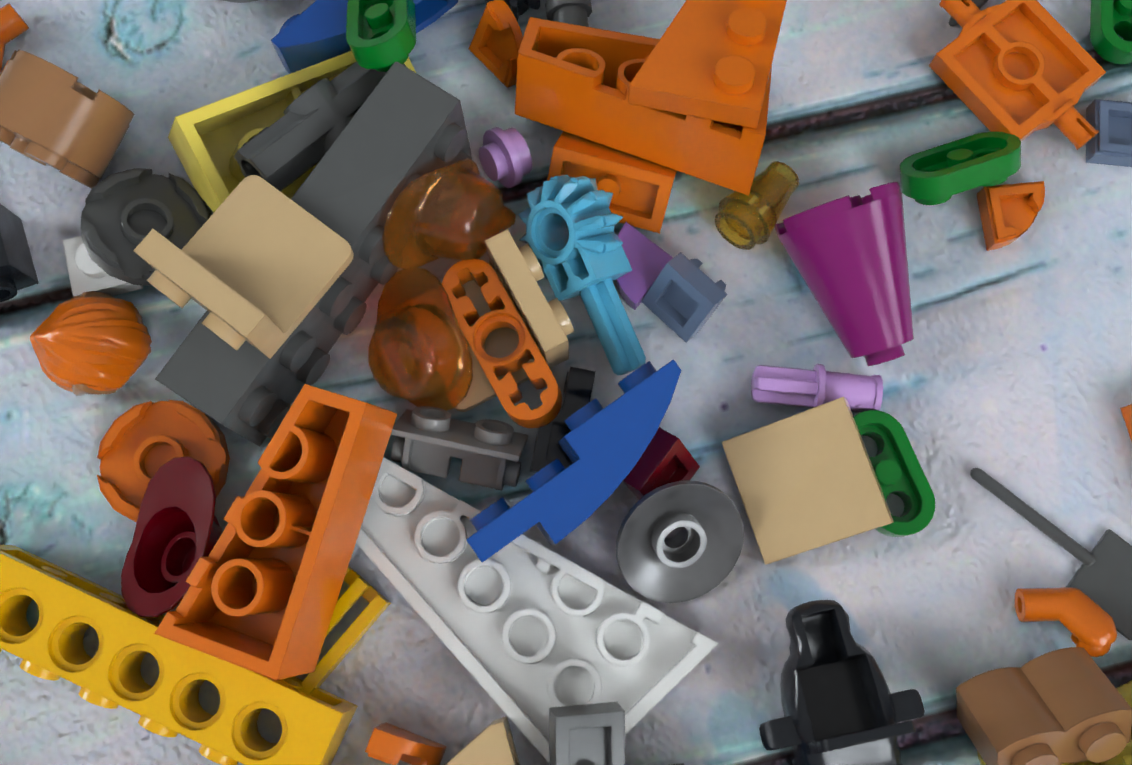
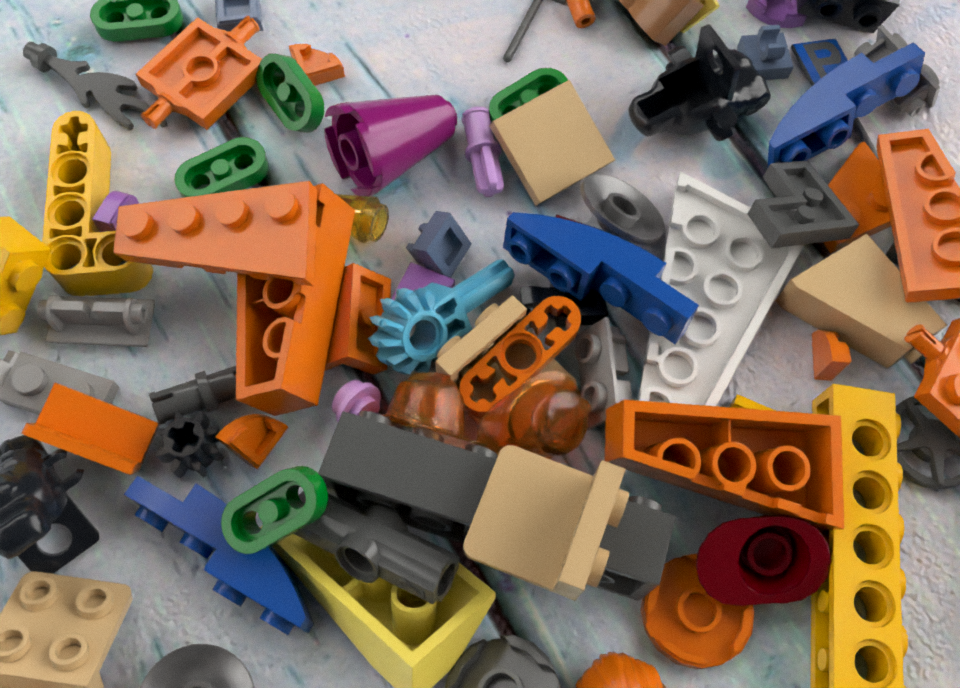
camera: 110 degrees left, 10 degrees down
(856, 73) = (222, 167): none -> green plate

